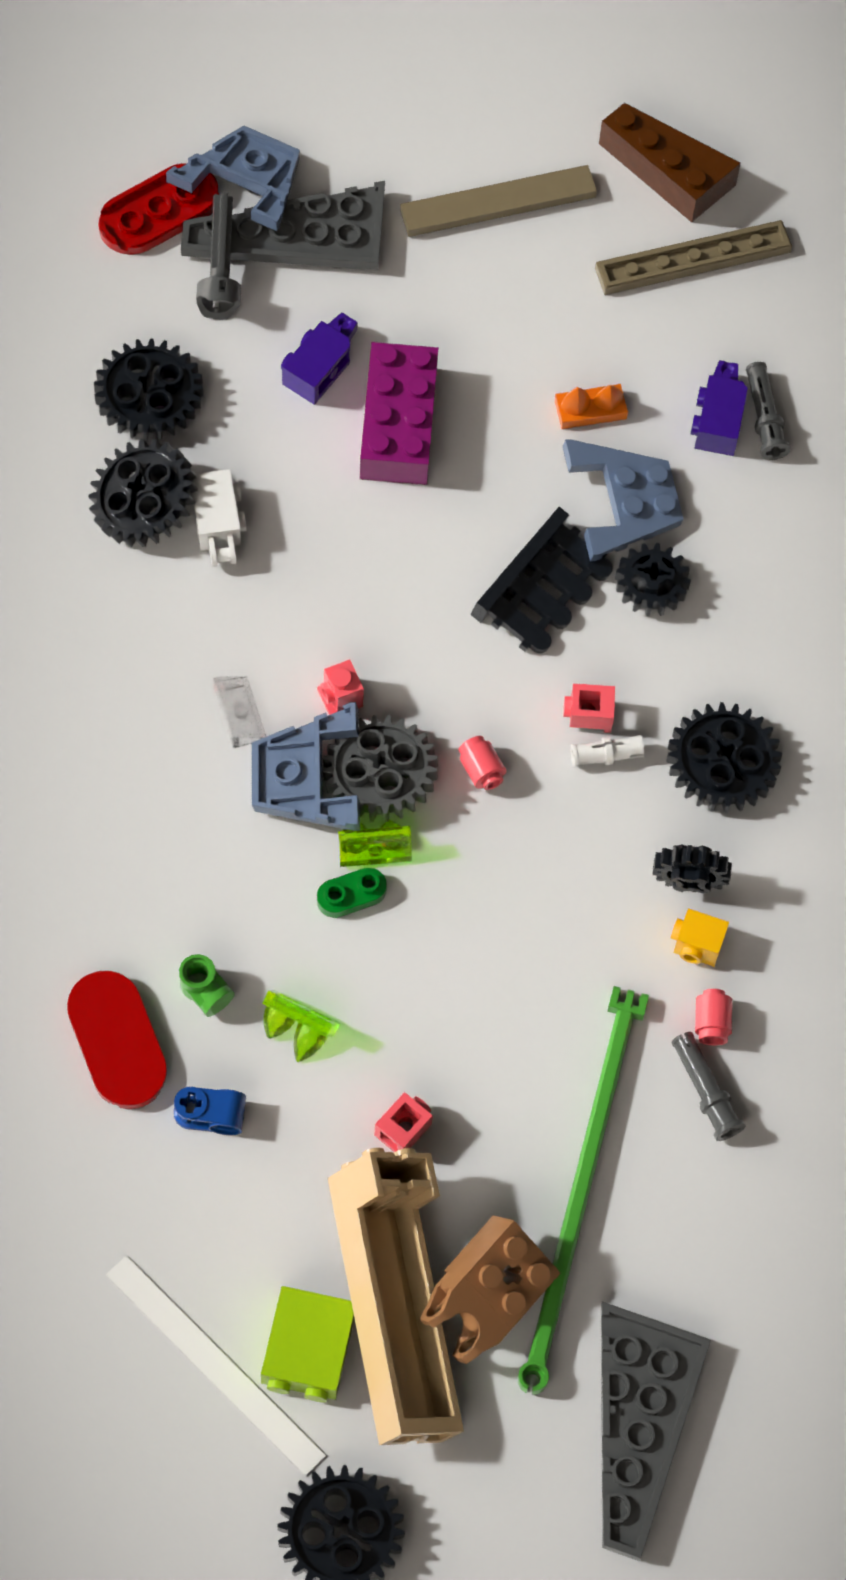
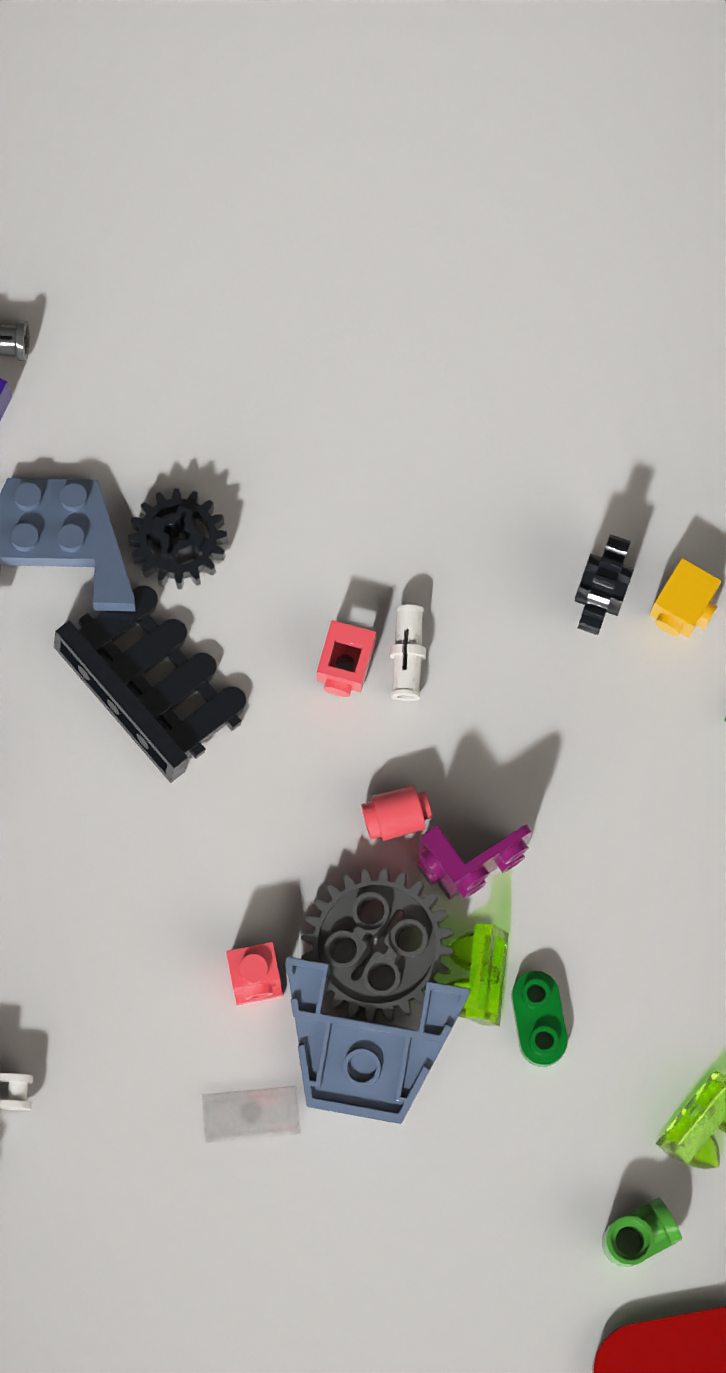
camera: 75 degrees left, 10 degrees up
(450, 819) = (444, 866): none -> magenta bracket
(751, 744) = (432, 475): black gear -> none

